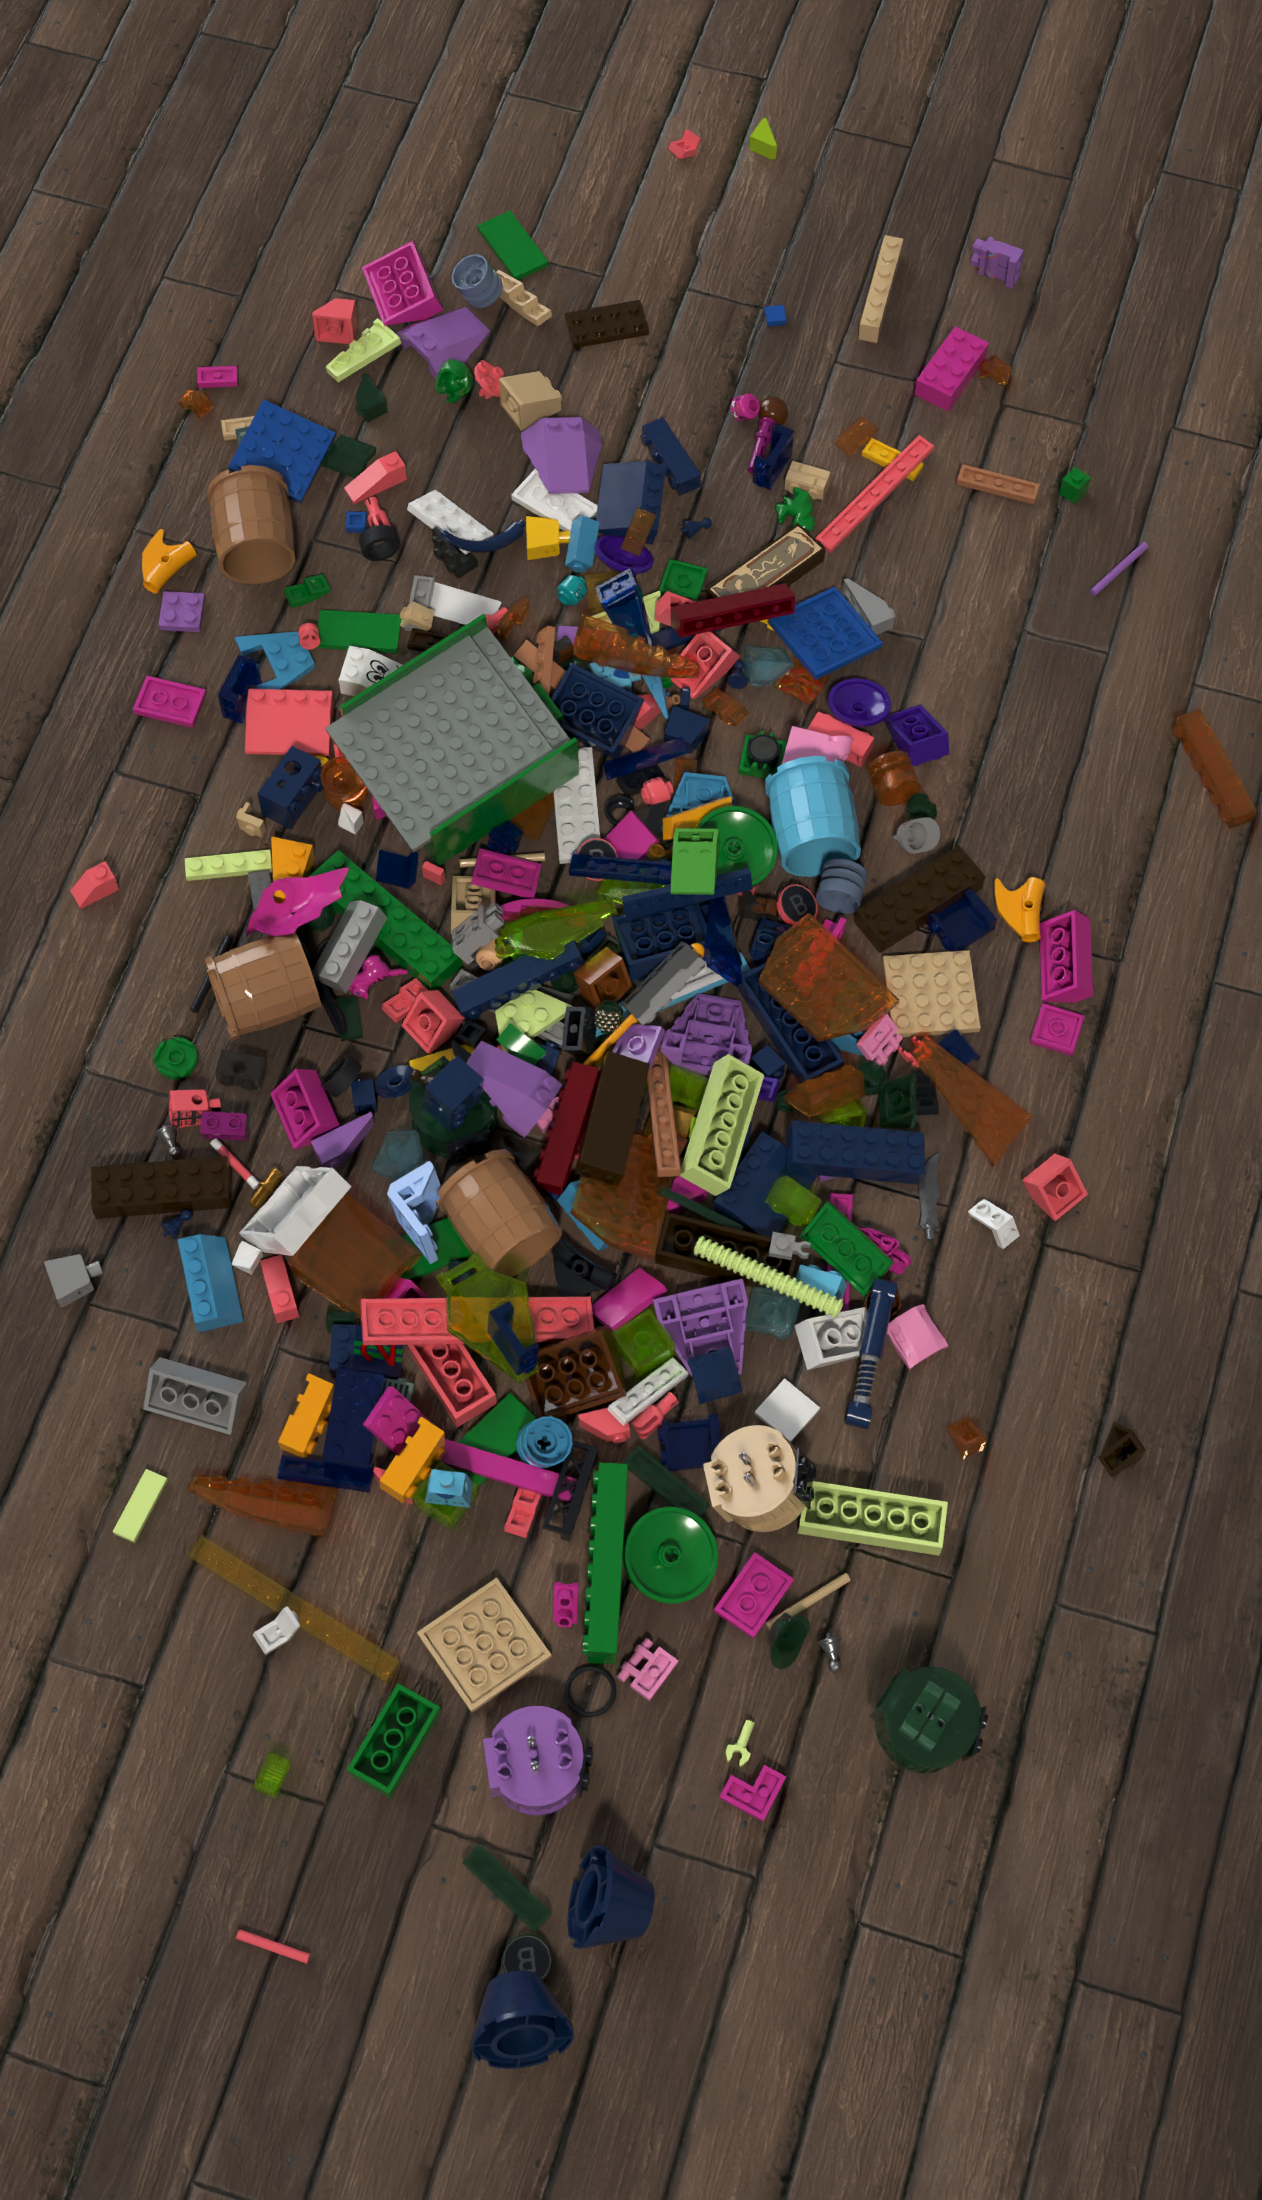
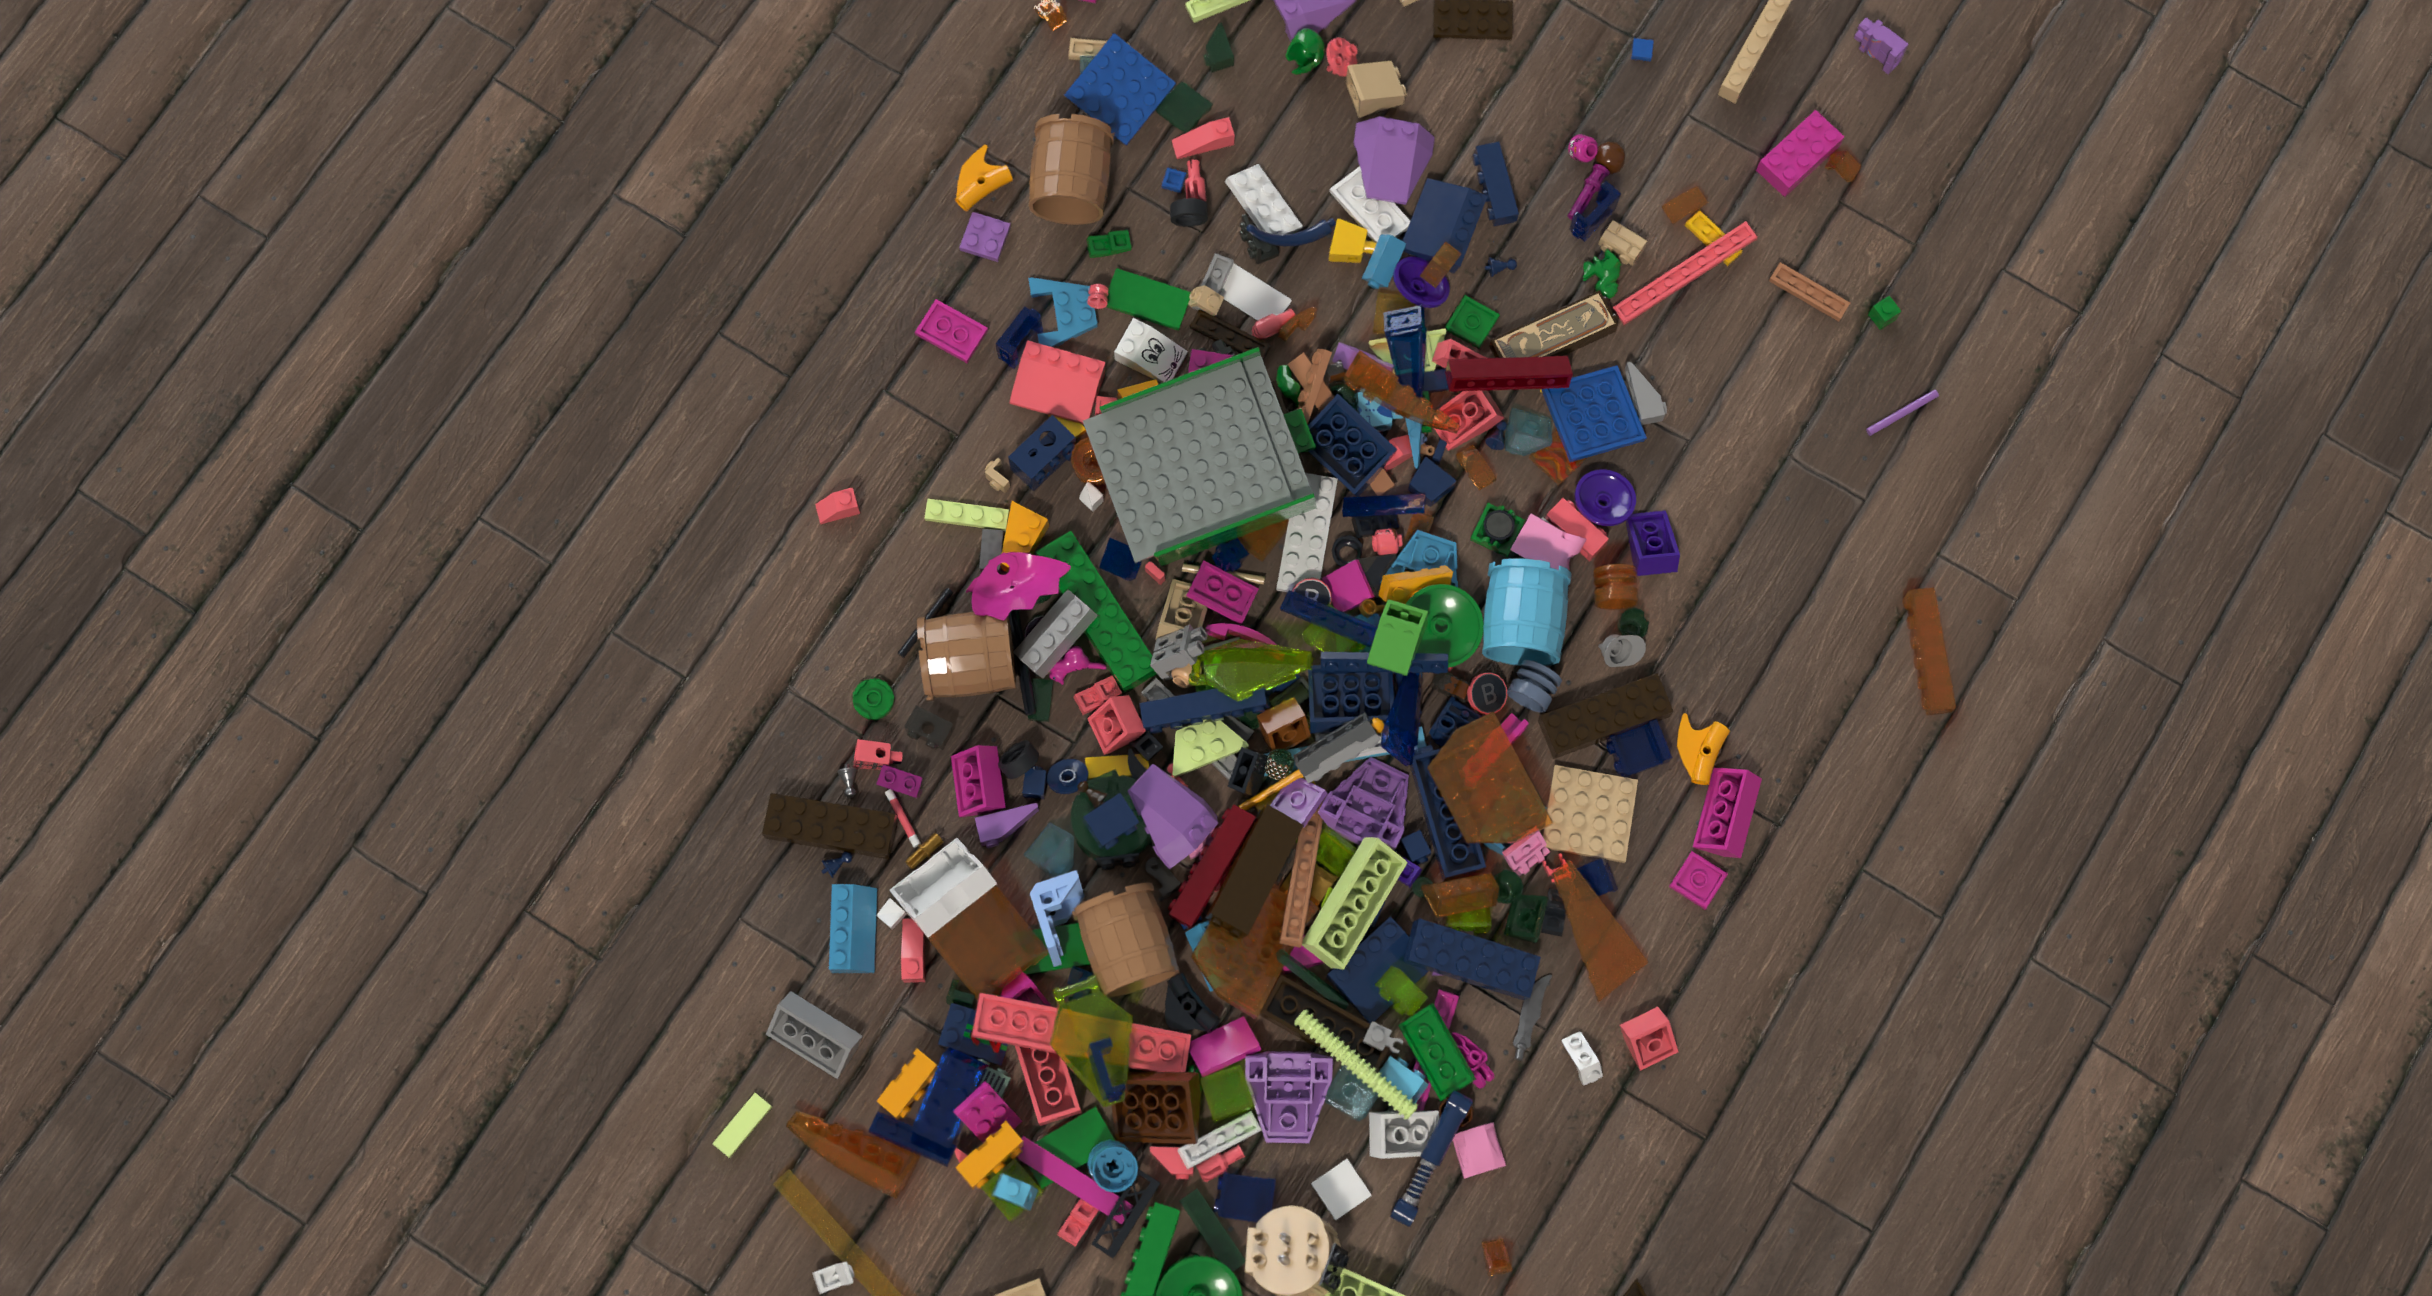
camera: 15 degrees right, 10 degrees up
(71, 1277) = (730, 893): light grey torso -> none
(521, 1045) = (1190, 773): green slope -> none
(550, 1059) = (1213, 787): dark blue bracket -> none
(572, 590) = (1361, 307): teal head -> none
(715, 1375) = (1283, 1140): dark blue slope -> none

